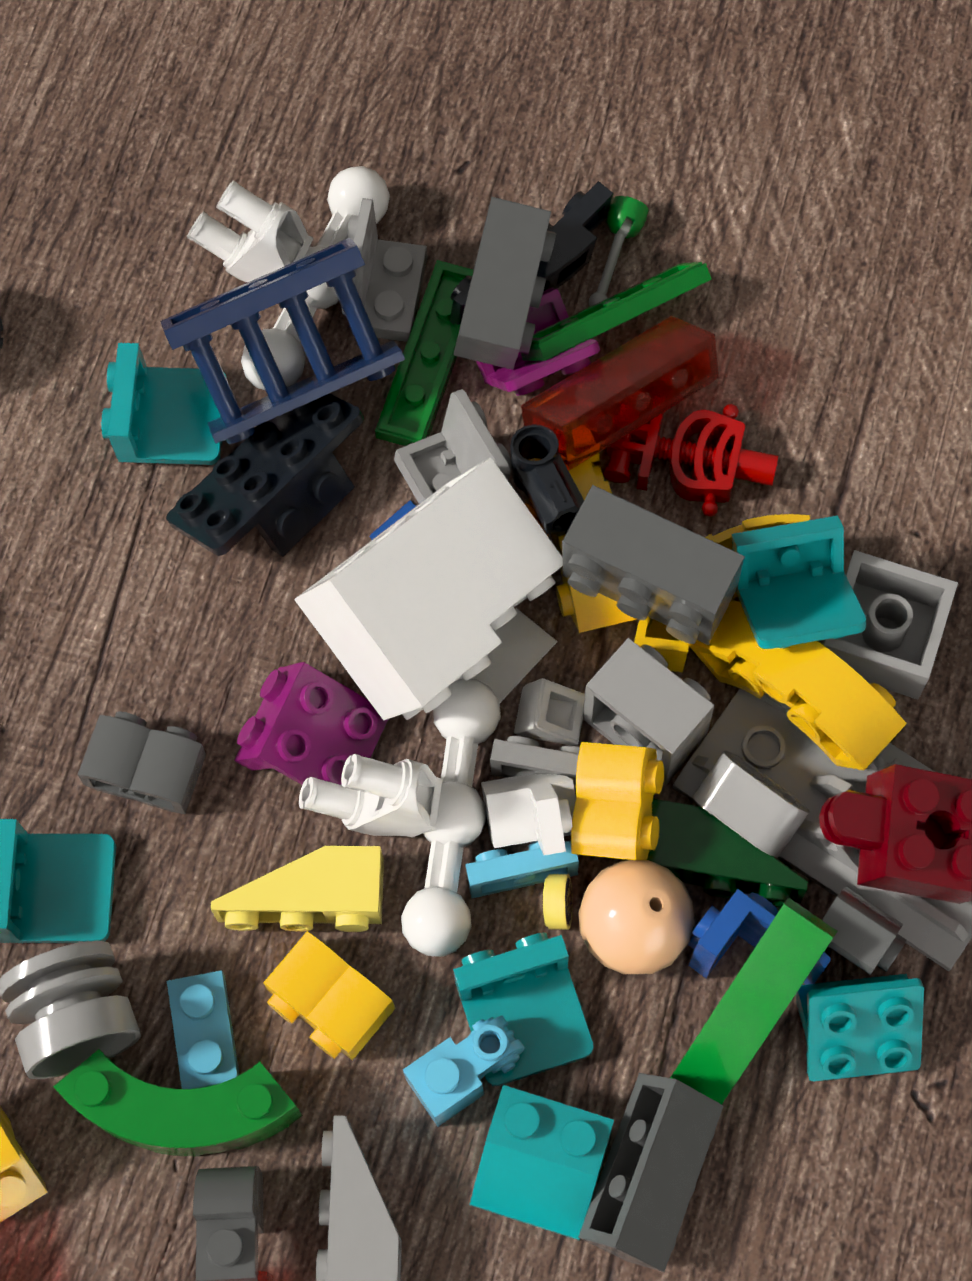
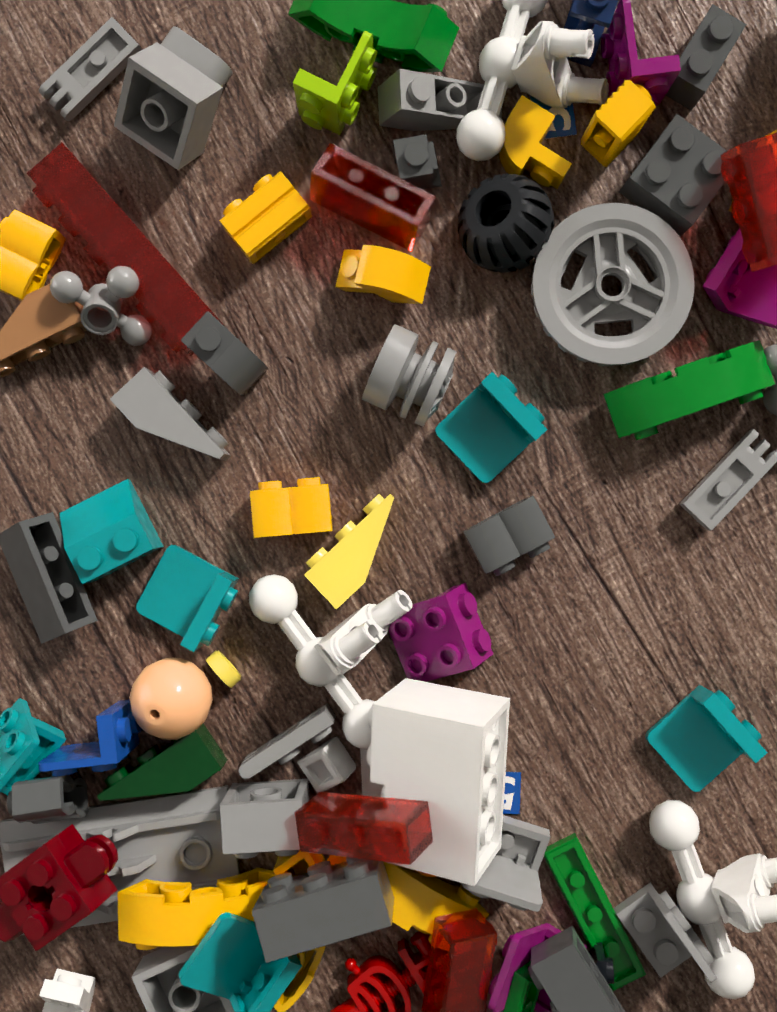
camera: 135 degrees right, 20 degrees up
(179, 1119) = (303, 377): green brick -> none
(203, 1030) = (339, 433): medium azure plate -> none
(241, 310) = (713, 839): dark blue fence -> none
(273, 481) = (603, 758): black bracket -> none
(451, 1073) = (187, 529): medium azure brick -> none
(500, 872) = (250, 683): medium azure plate -> none
(530, 810) = (278, 705): white brick -> none
(544, 603) = (364, 827): none -> clear red brick
(546, 480) = (434, 898): black piece -> none
(616, 801) = (231, 750): yellow brick -> none
(751, 804) = (166, 816): light grey beam -> none
(754, 1001) = (63, 712): green tile -> none

